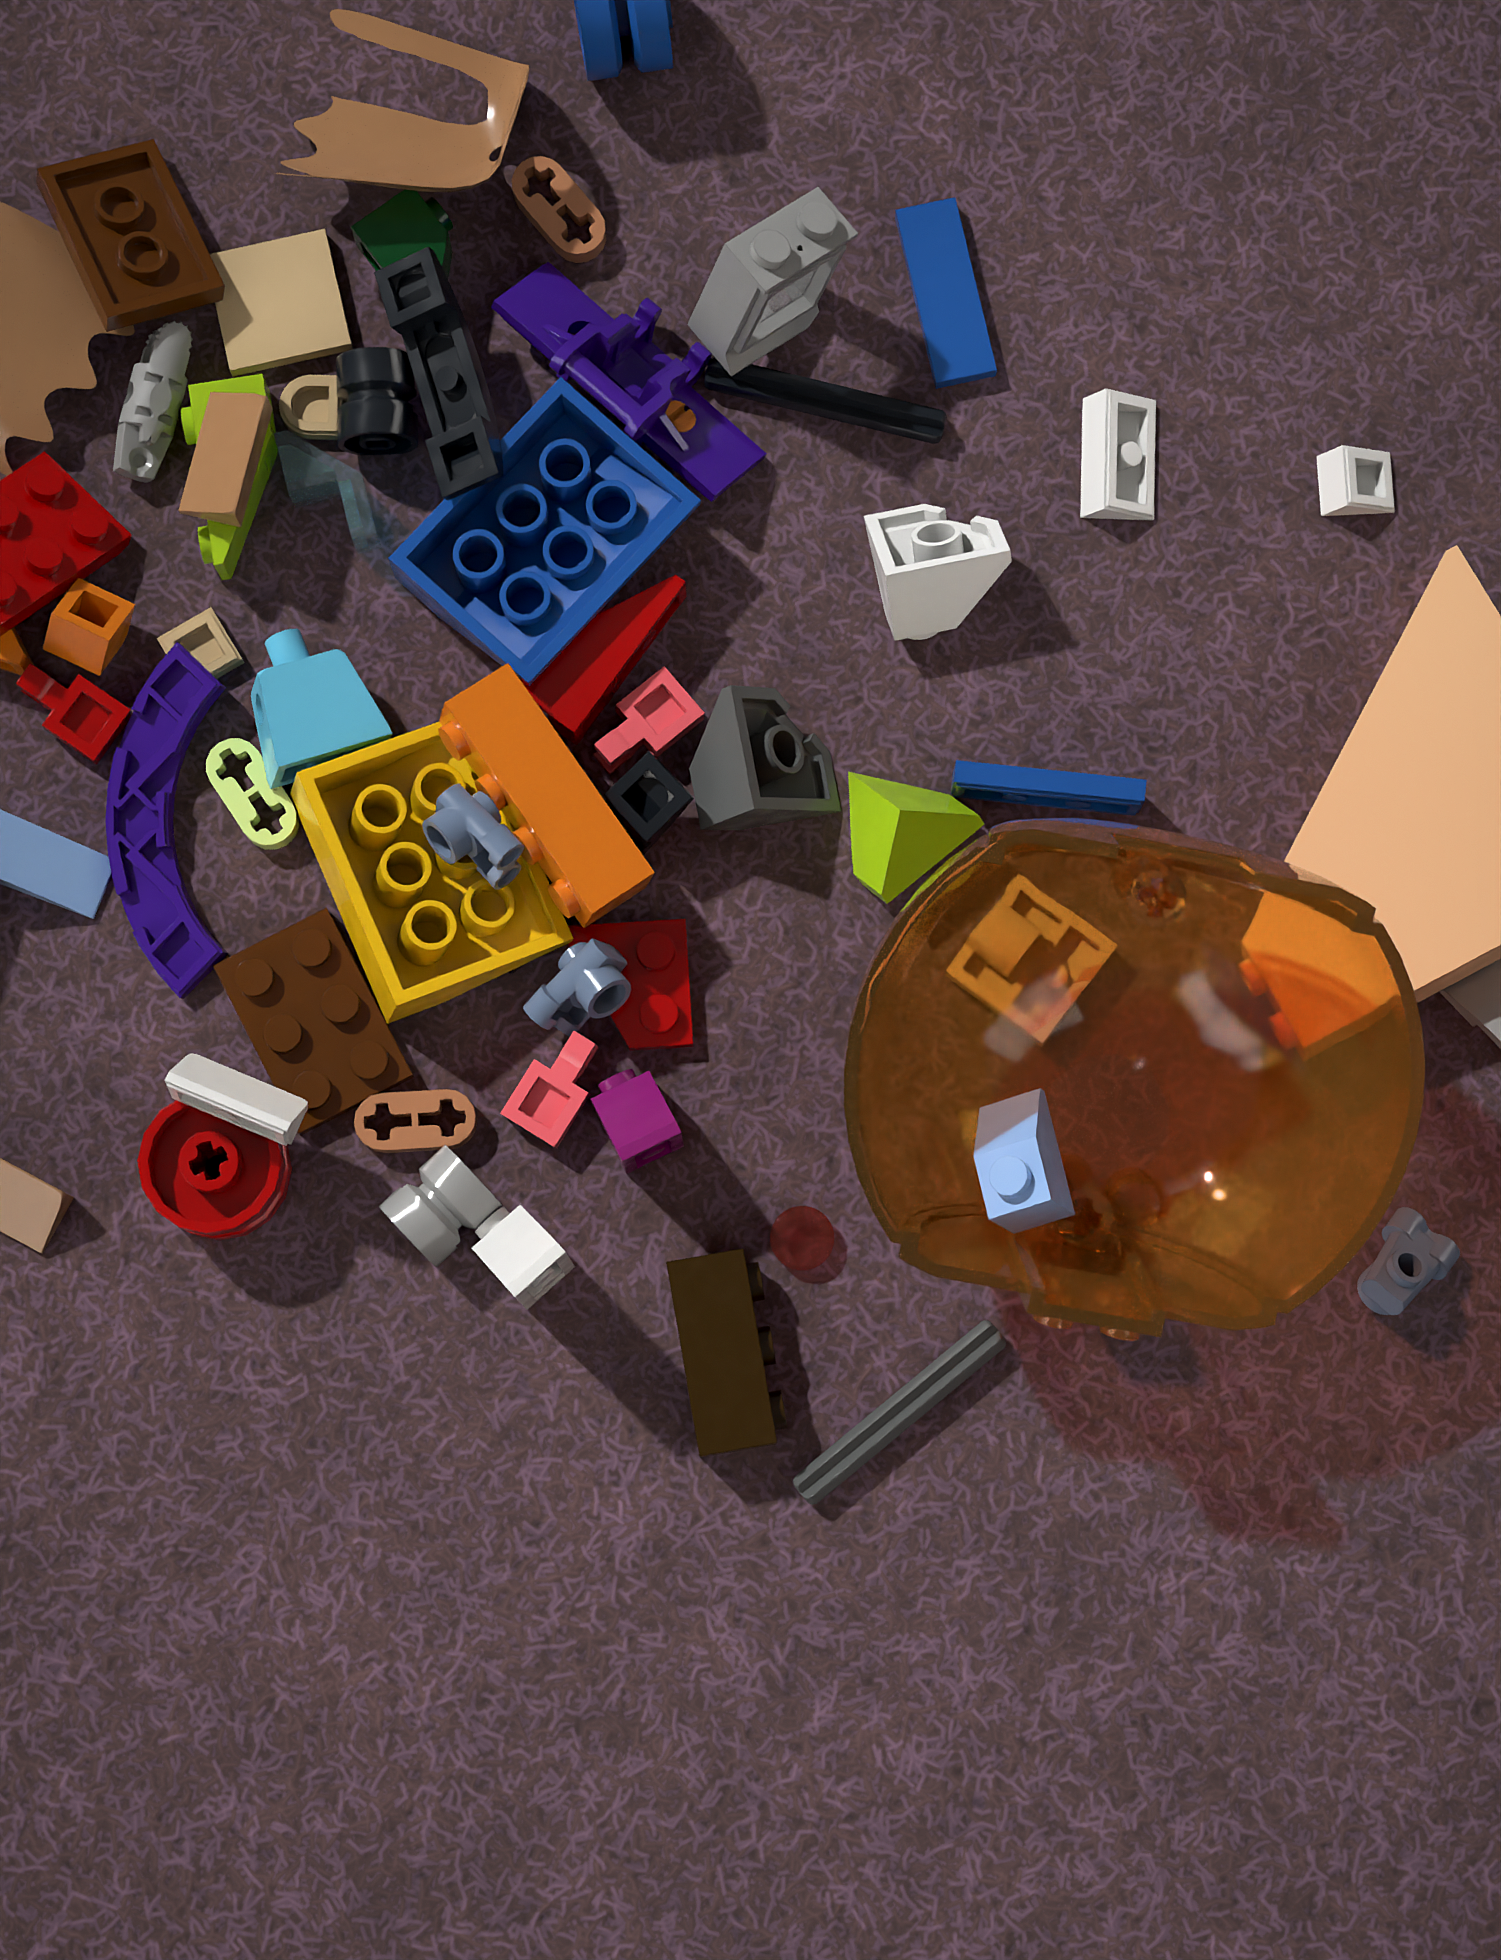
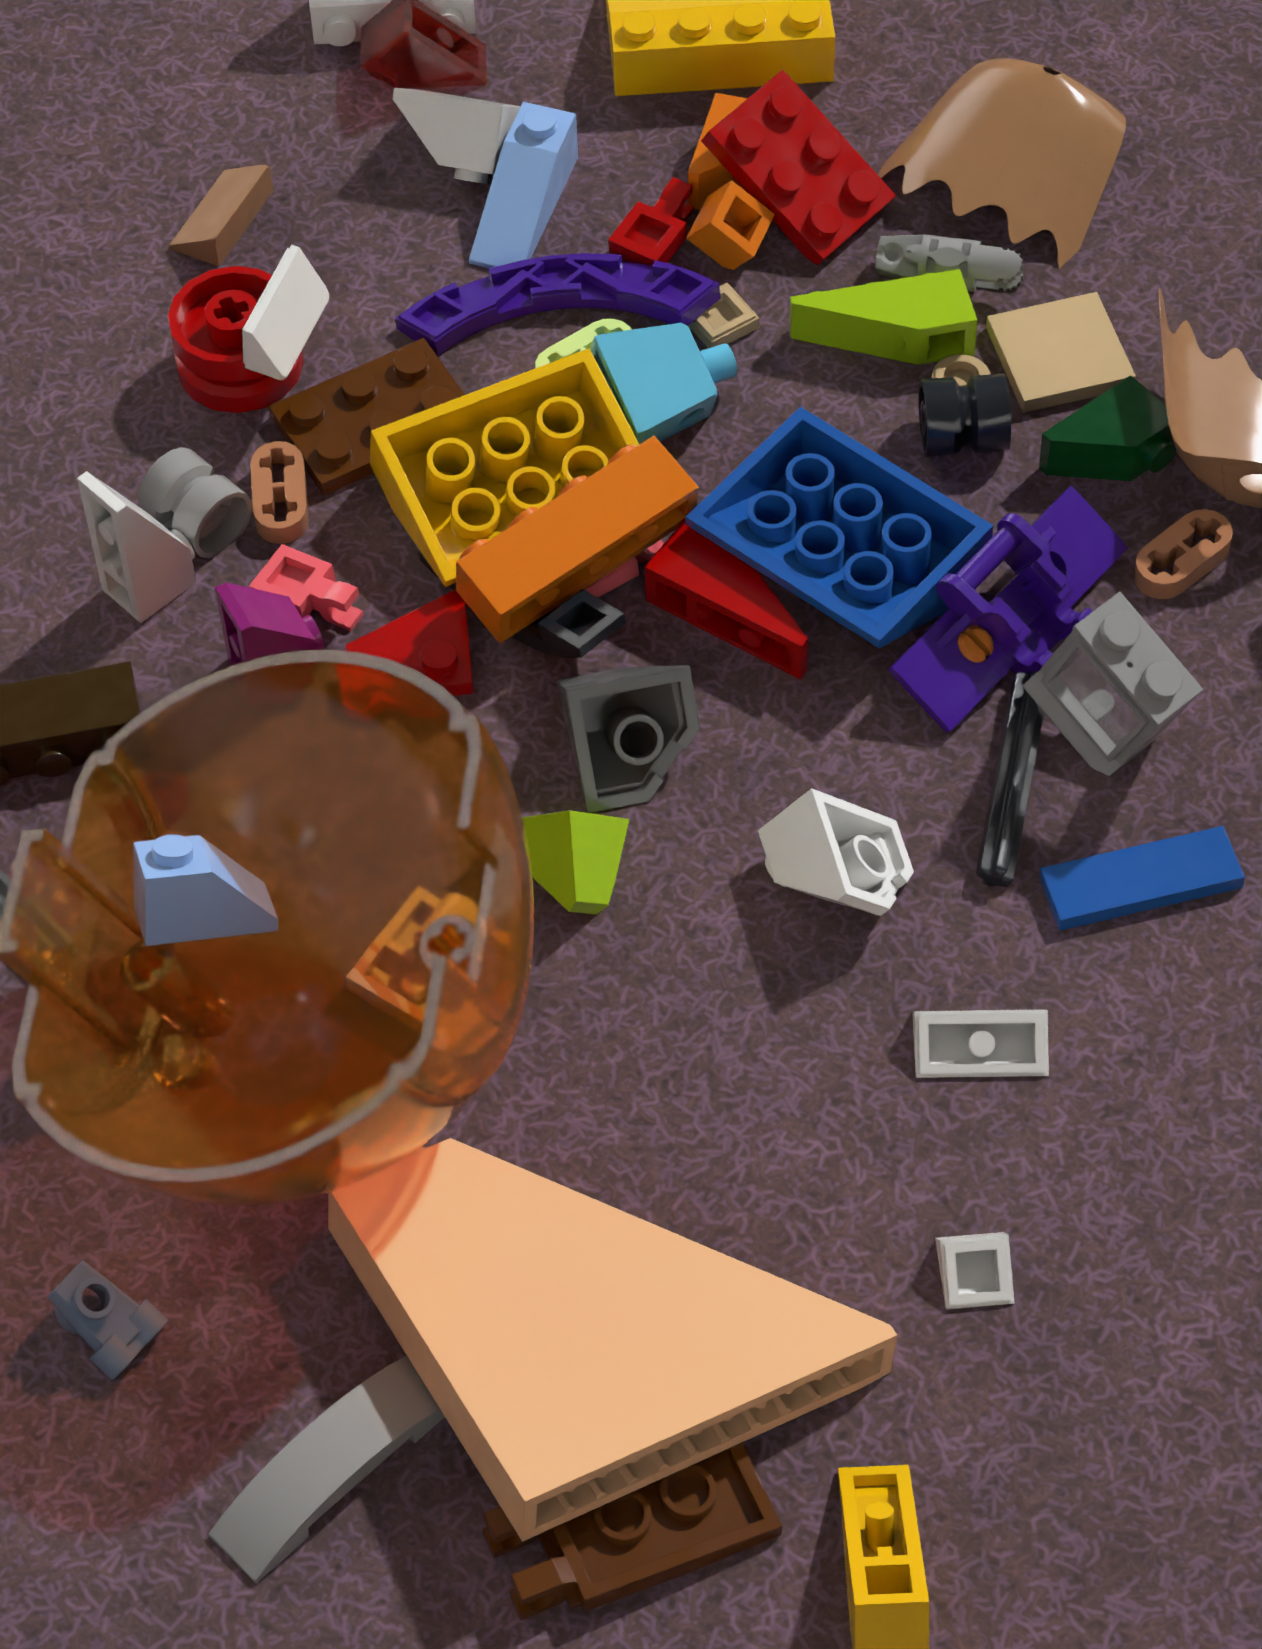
camera: 90 degrees right, 25 degrees down
(130, 234) = (1103, 227): reddish brown plate -> none
(226, 457) = (888, 294): medium nougat slope -> none
(318, 477) = (889, 376): clear light blue slope -> none
(446, 371) = (1051, 423): black slope -> none
(473, 827) = (535, 473): sand blue plate -> none
(584, 988) = (395, 590): sand blue plate -> none
(652, 715) = (667, 640): coral plate -> none
(1048, 788) = (612, 974): blue tile -> none

